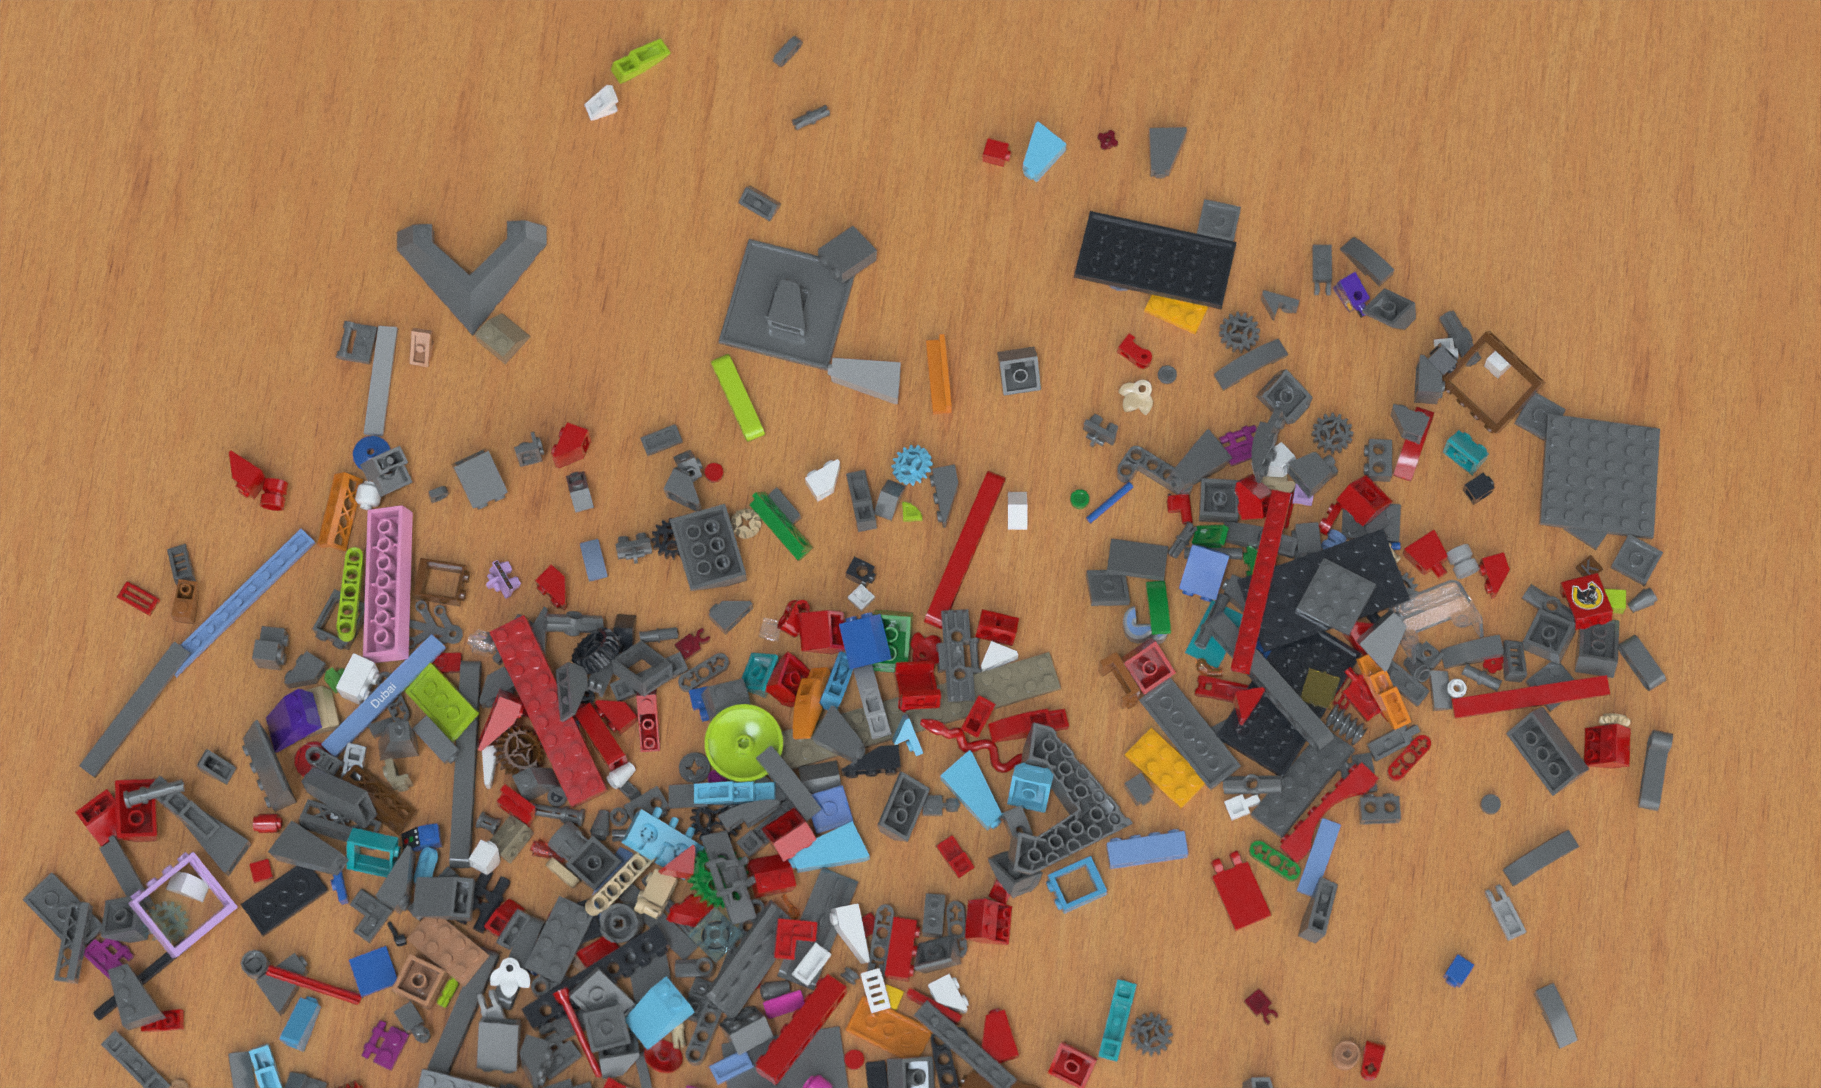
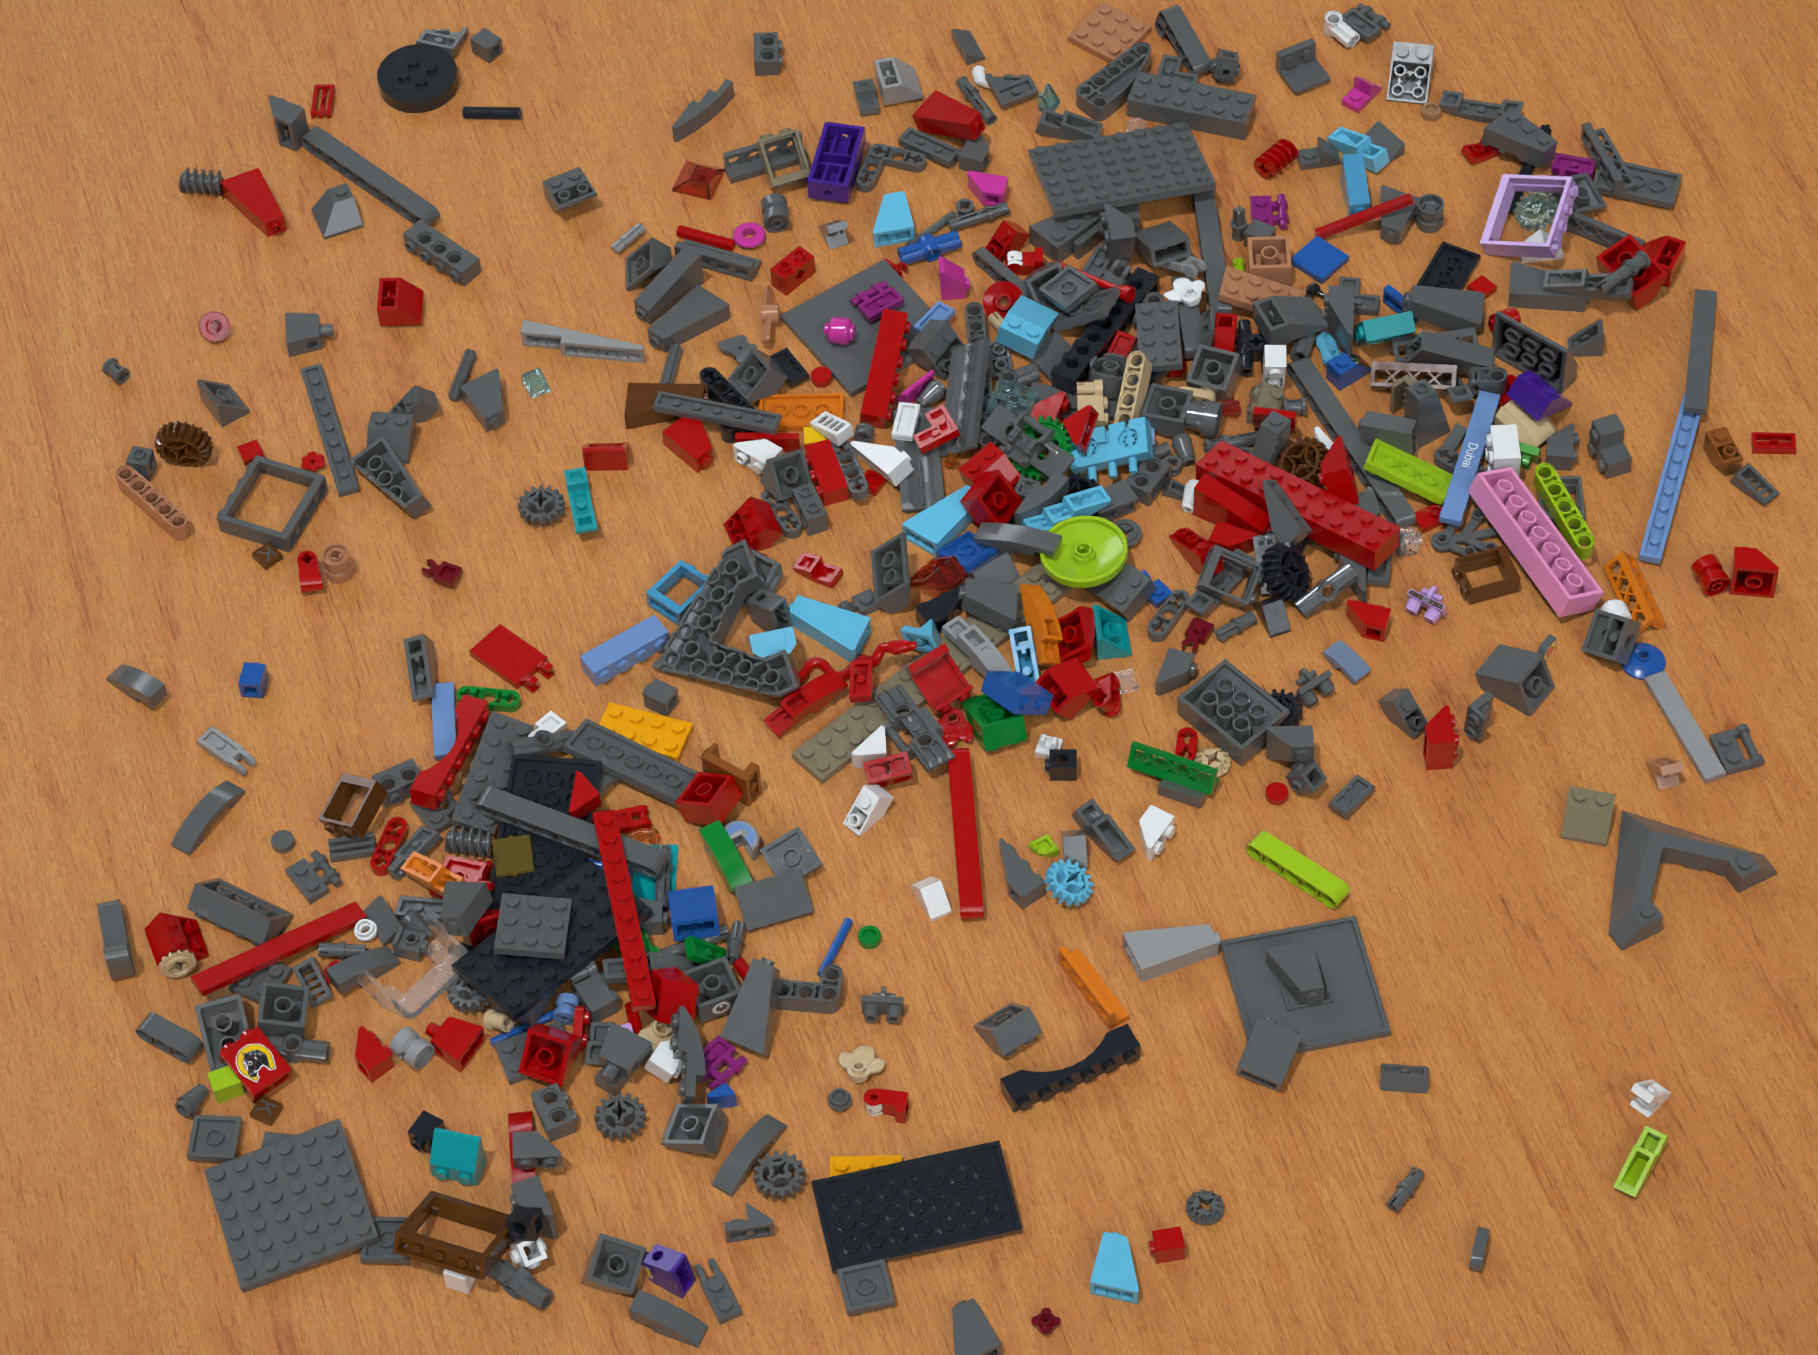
camera: 155 degrees right, 20 degrees down
(535, 882) = (1215, 371): none -> dark grey brick
(754, 542) = (1181, 747): none -> red beam
(866, 797) = (939, 574): none -> clear red slope
(948, 178) = (1204, 1216): none -> dark grey gear
(1027, 605) = (868, 808): none -> white slope
(1028, 315) = (1029, 1087): none -> black arch
(1251, 413) = (723, 1096): none -> blue slope
(1321, 502) = (597, 1037): none -> dark grey slope
(1412, 806) = (340, 799): none -> reddish brown window
(1441, 765) = (351, 845): none -> dark grey tile
(1484, 758) = (308, 882): none -> dark grey plate

